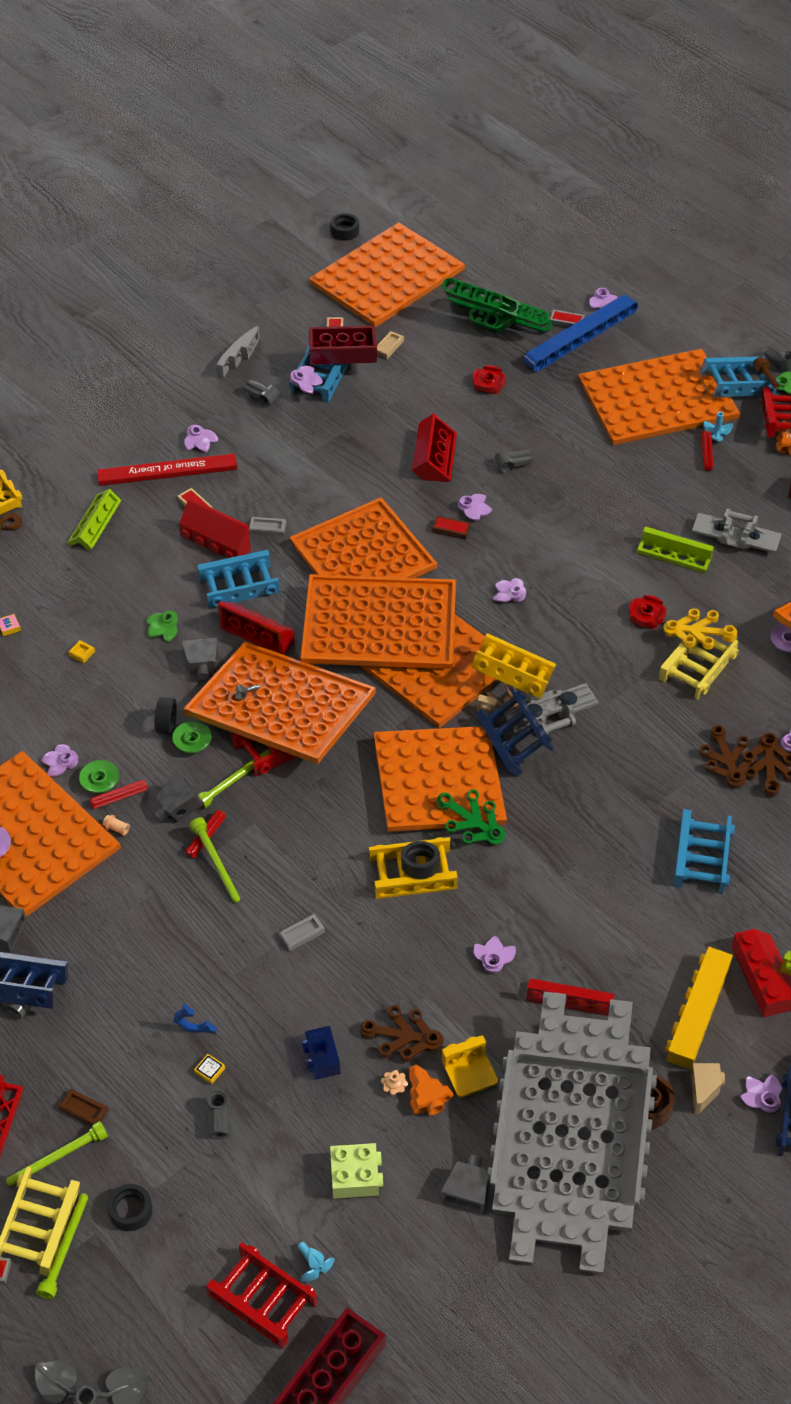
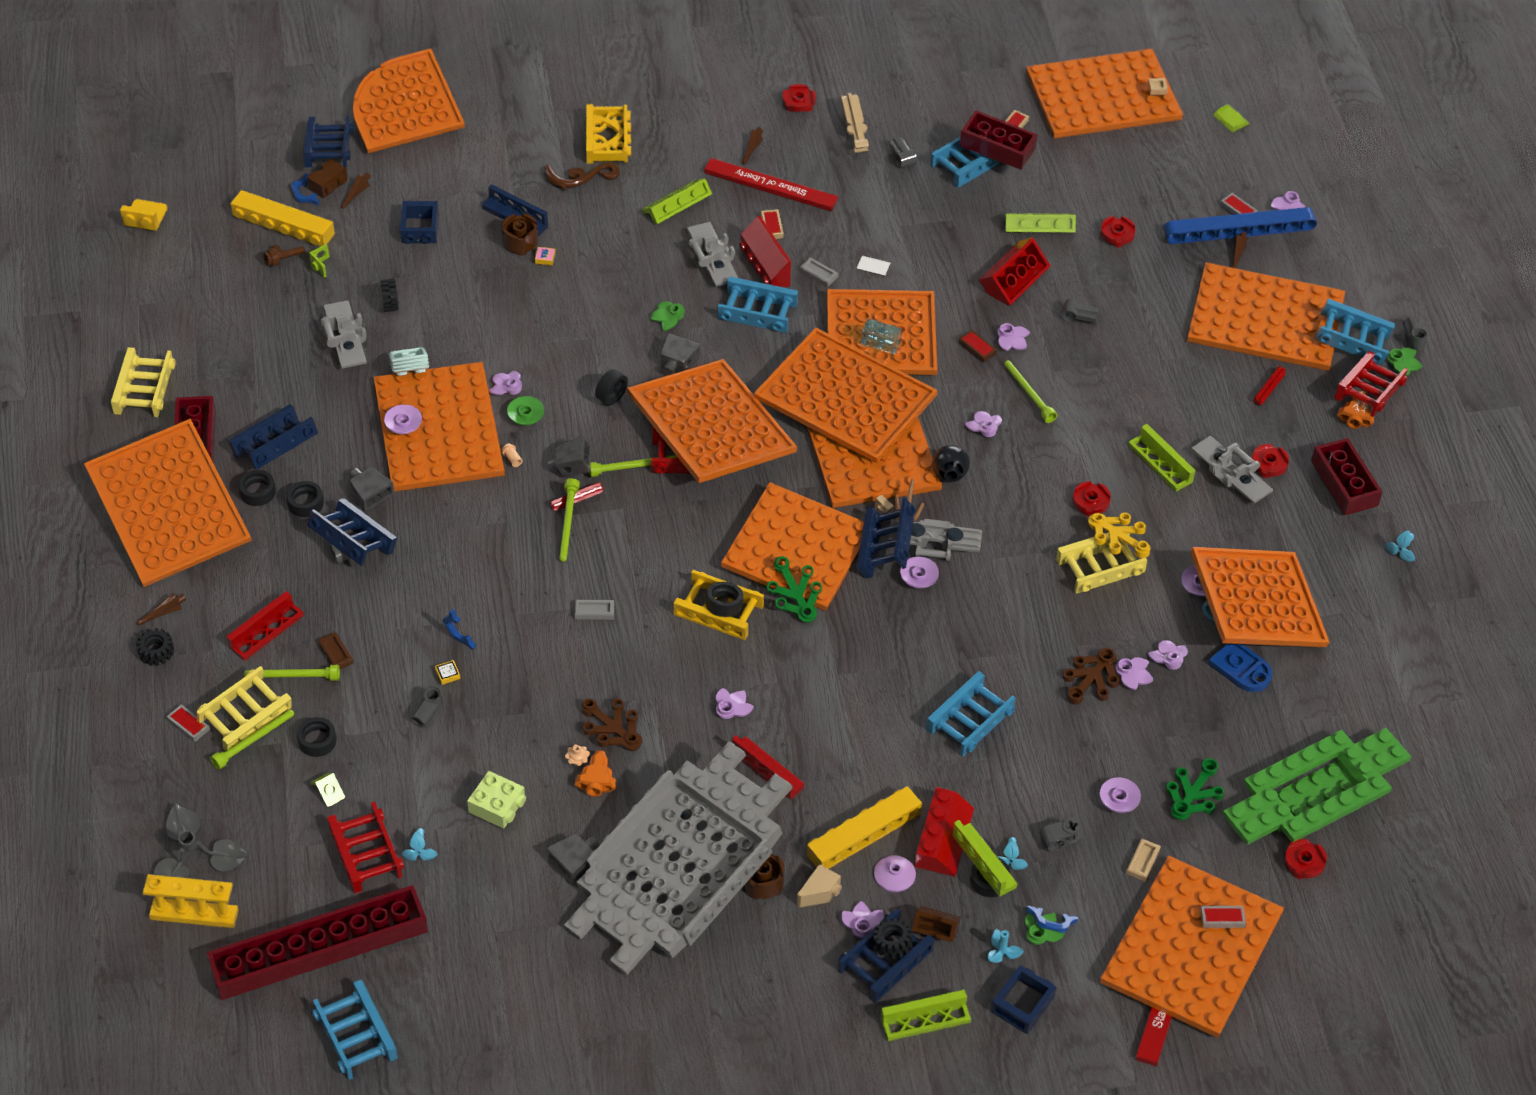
camera: 30 degrees right, 0 degrees up
(81, 651) = (587, 305): yellow tile -> none
(118, 794) = (532, 432): red axle -> none
(123, 435) = (755, 140): none -> reddish brown piece
(143, 385) = (806, 102): none -> red plate
(164, 551) = (718, 254): none -> light grey piece
(179, 1253) = (329, 788): none -> bracket
(190, 731) = (621, 415): bright green dish -> none
(191, 372) = (855, 120): none -> tan piece
(199, 440) = (818, 171): lavender plate -> none
(237, 351) = (913, 105): light grey slope -> none
(241, 691) = (682, 395): dark grey hand -> none
(255, 628) = (740, 351): red slope -> none
(305, 378) = (947, 157): lavender plate -> none
(309, 499) = (873, 265): none -> white sticker
(321, 1041) = (538, 704): clear blue brick -> none
(344, 233) = (1097, 40): black tyre -> none
(372, 555) = (881, 336): none -> clear light blue brick
(389, 344) = (1052, 159): tan tile -> none
(421, 400) = (1039, 222): none -> lime fence
(431, 249) = (1157, 86): none -> tan plate
(469, 1066) = (641, 771): yellow bracket -> none
(502, 252) = (1230, 118): none -> lime piece
(509, 308) = (1181, 175): green beam -> none
(513, 665) = (936, 478): yellow fence -> none
(517, 633) = (951, 463): none -> black brick
(556, 557) = (1047, 413): none -> lime piece
(566, 748) = (919, 572): none -> lavender dish
(592, 349) = (1240, 245): none -> reddish brown piece
(718, 429) = (1293, 368): medium azure plant -> none
(727, 758) = (1067, 630): reddish brown plant -> none
(752, 1041) = (894, 880): none -> lavender dish
(762, 366) = (1381, 331): reddish brown piece -> none
(767, 514) = (1271, 469): none -> red plate

